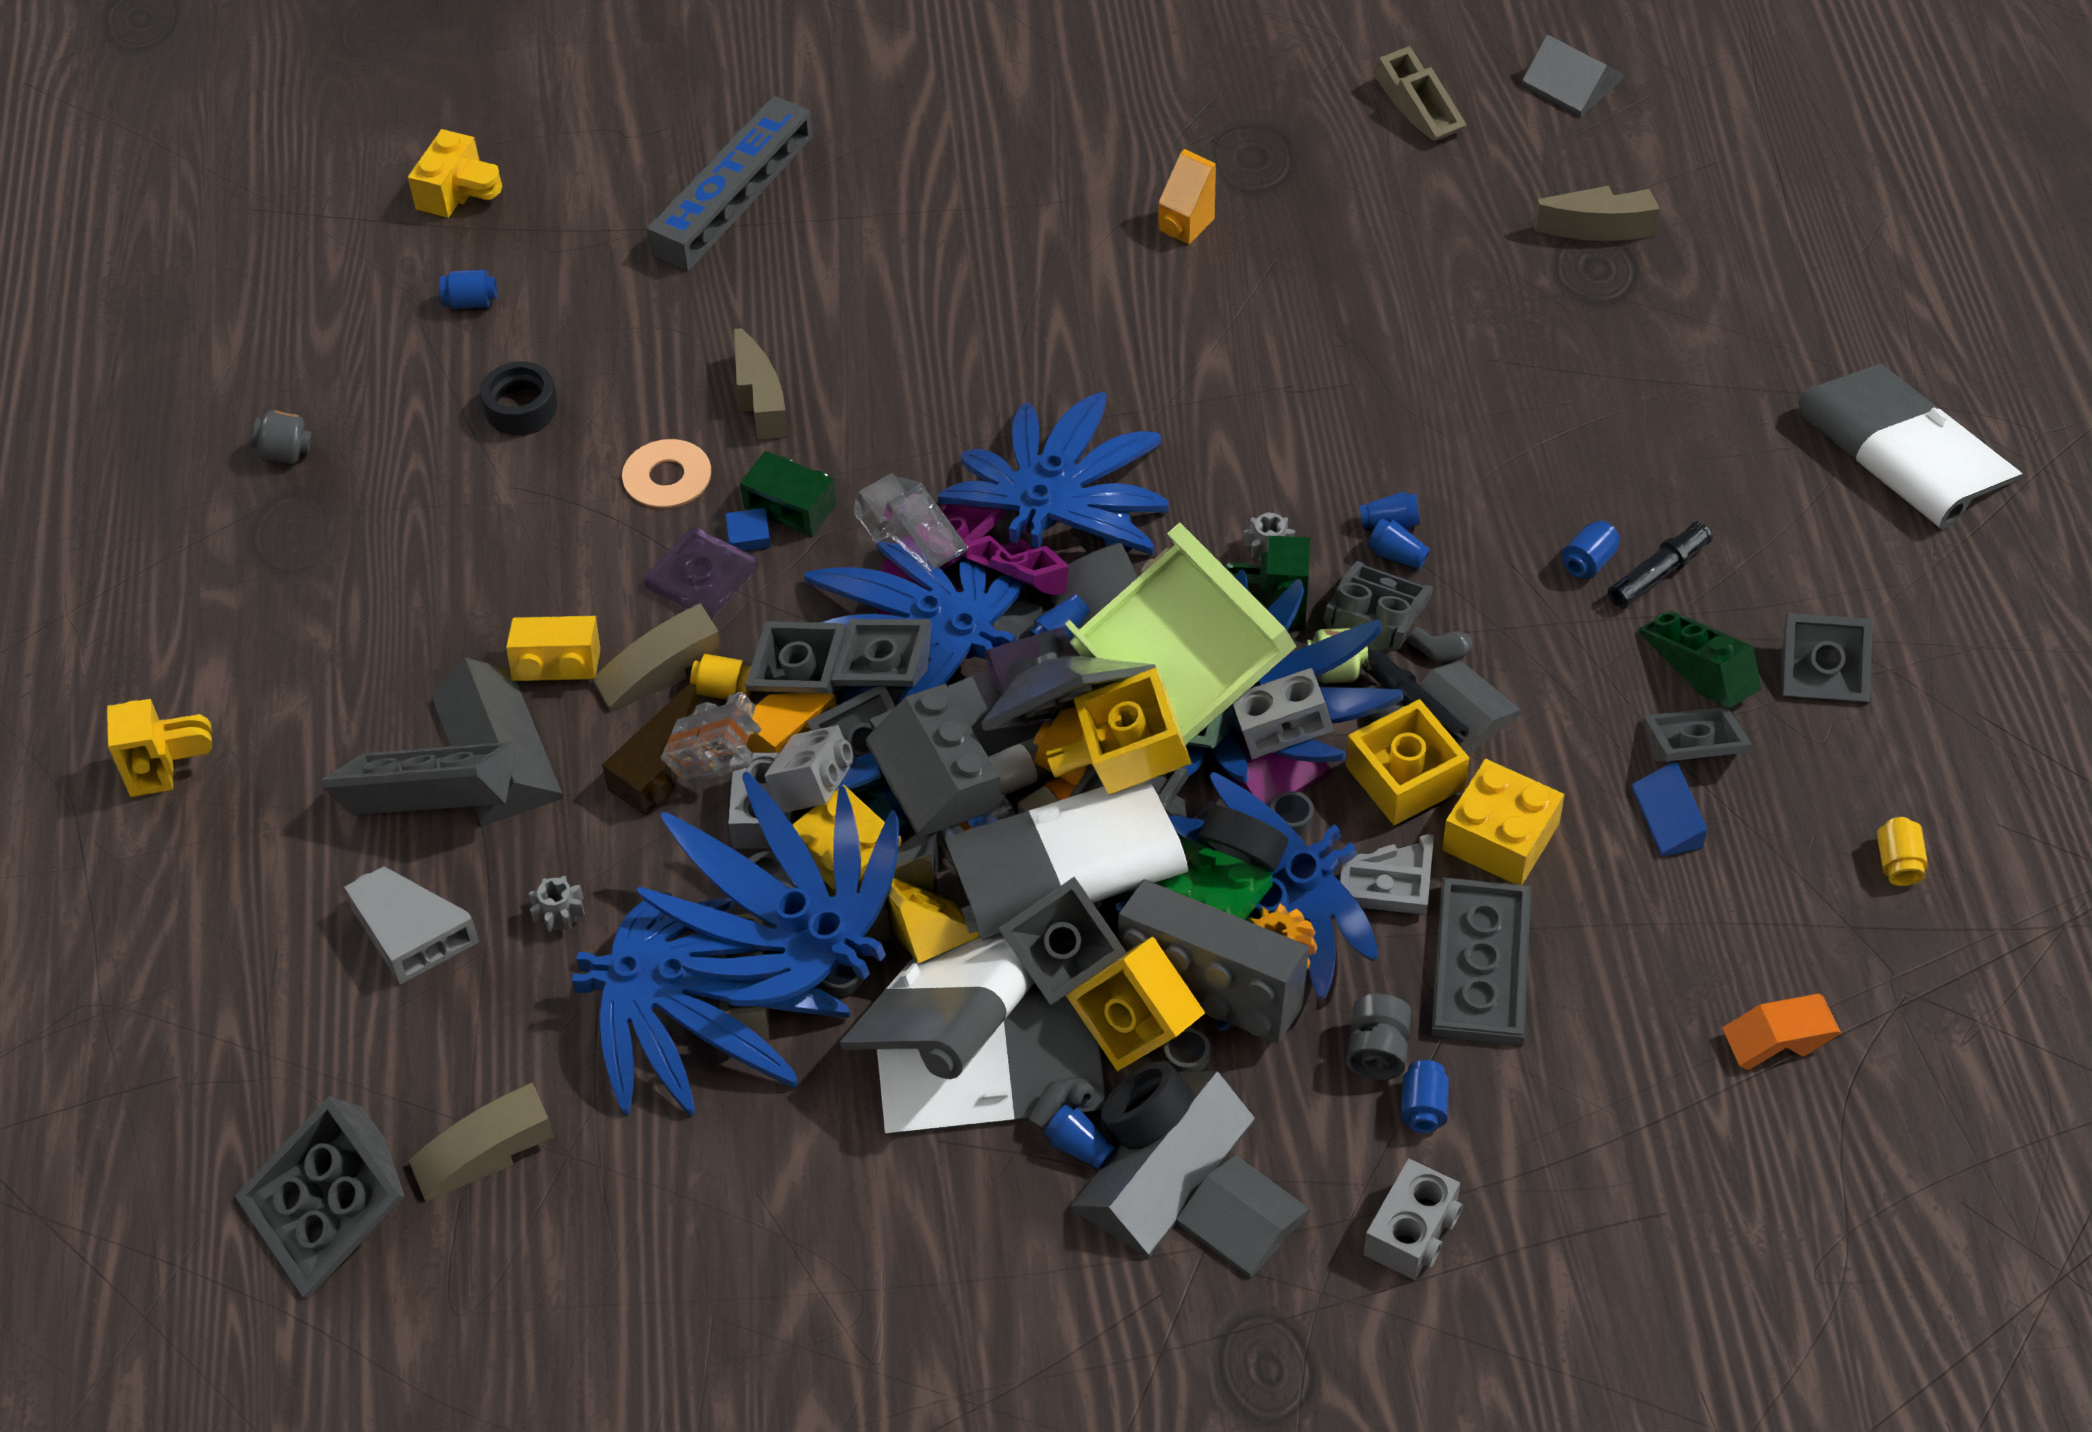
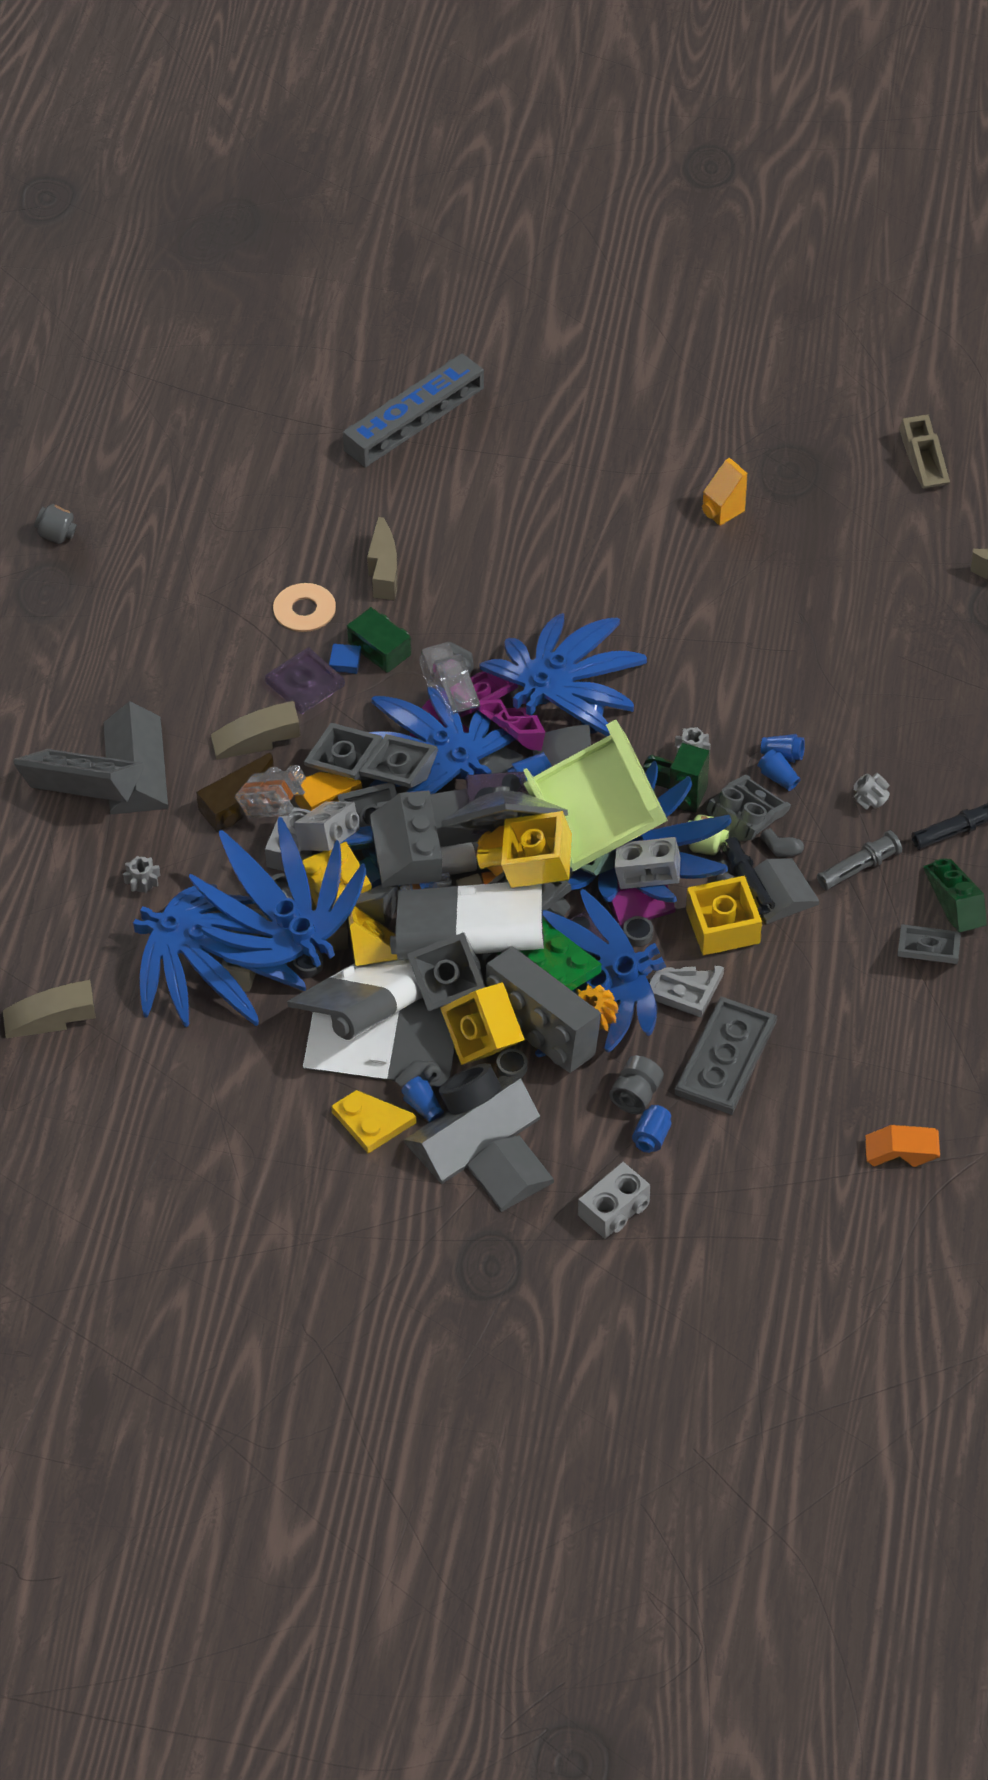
camera: 15 degrees right, 0 degrees up
(409, 922) = (45, 864): light grey slope -> none
(451, 174) = (222, 362): yellow brick -> none
(467, 289) = (210, 447): blue brick -> none
(513, 377) = (221, 517): black tyre -> none
(553, 648) = (190, 708): yellow brick -> none
(719, 676) = (292, 752): yellow brick -> none
(1012, 1187) = (371, 1119): none -> yellow wing
(1243, 837) = (588, 936): black tyre -> none
(1502, 822) = (773, 970): yellow brick -> none
(1534, 543) = (871, 791): none -> light grey gear
(1566, 630) = (870, 855): none -> dark grey pin
(1590, 549) = (910, 804): blue brick -> none
(1670, 811) = (890, 990): blue slope -> none

